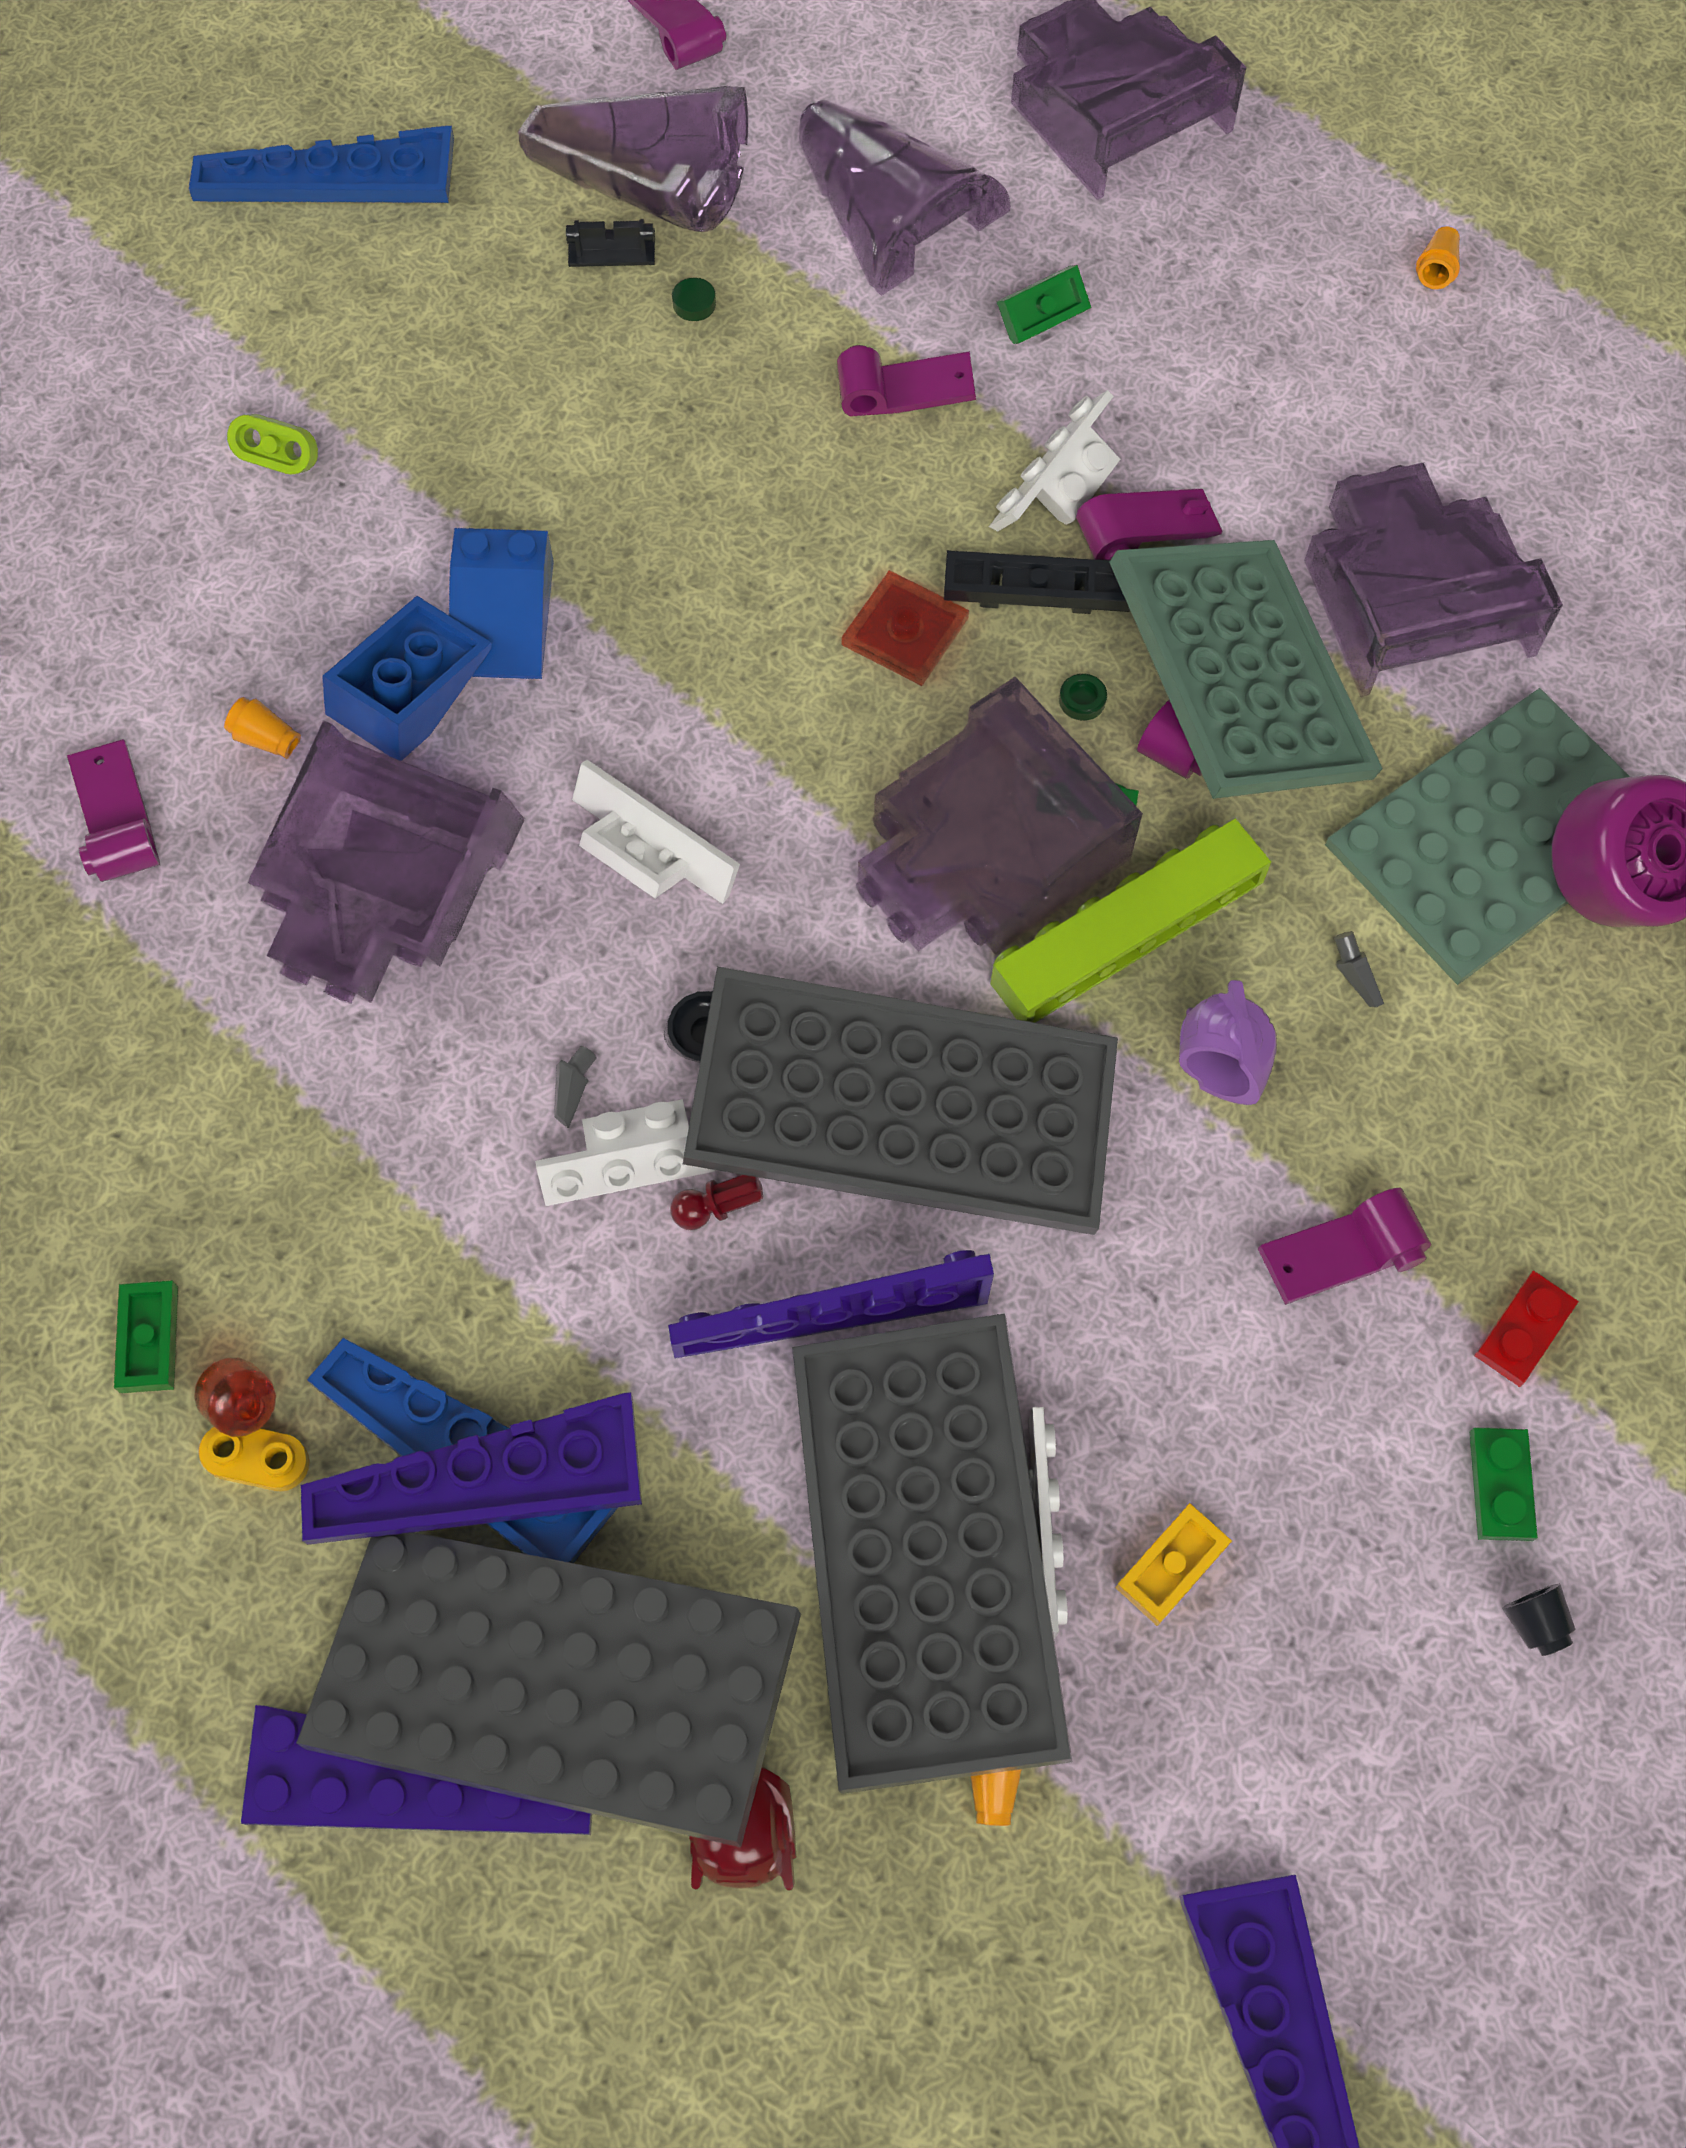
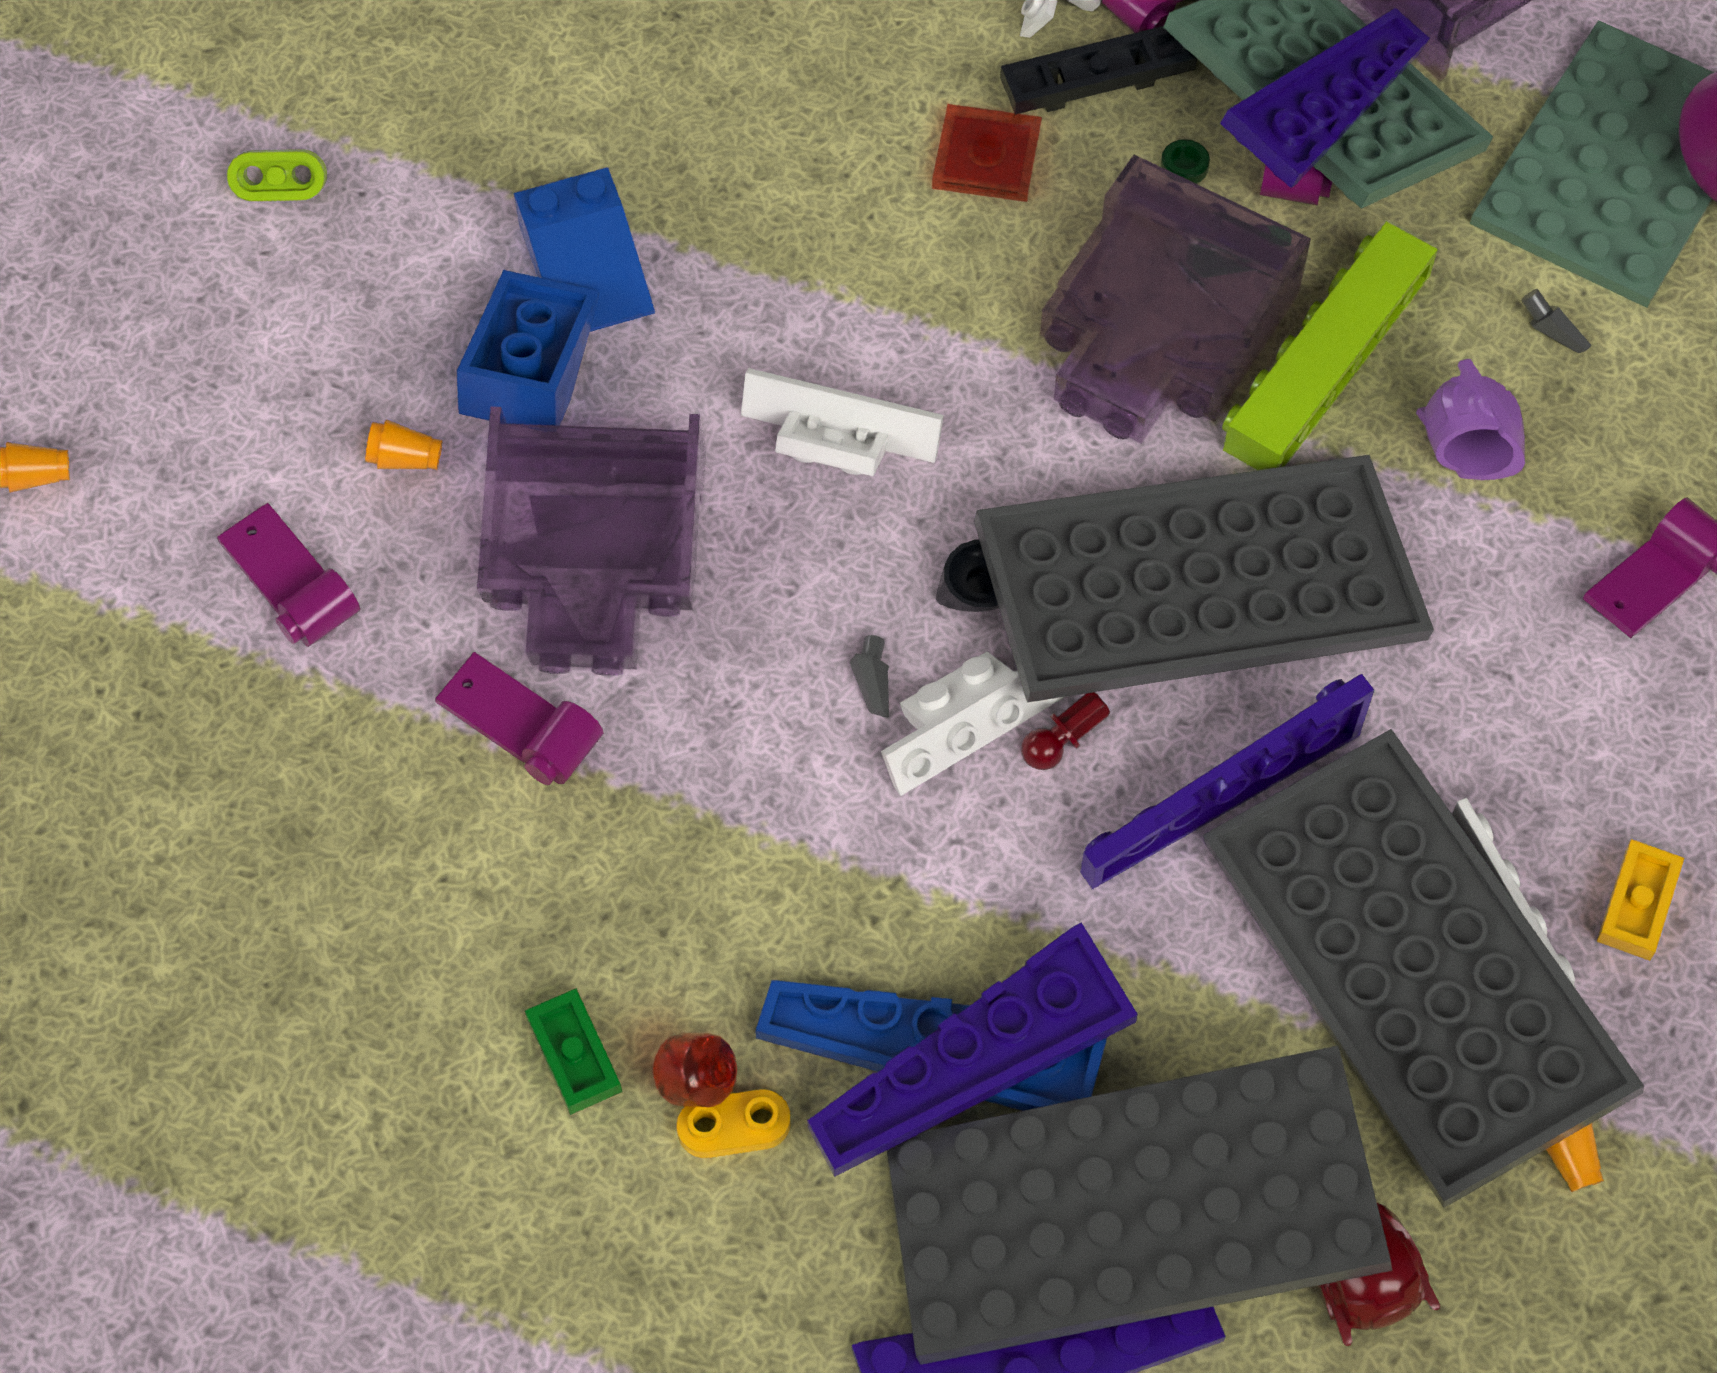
camera: 20 degrees left, 5 degrees down
(244, 1014) = (520, 721): none -> magenta door
(1207, 684) = (1312, 106): none -> dark purple wing

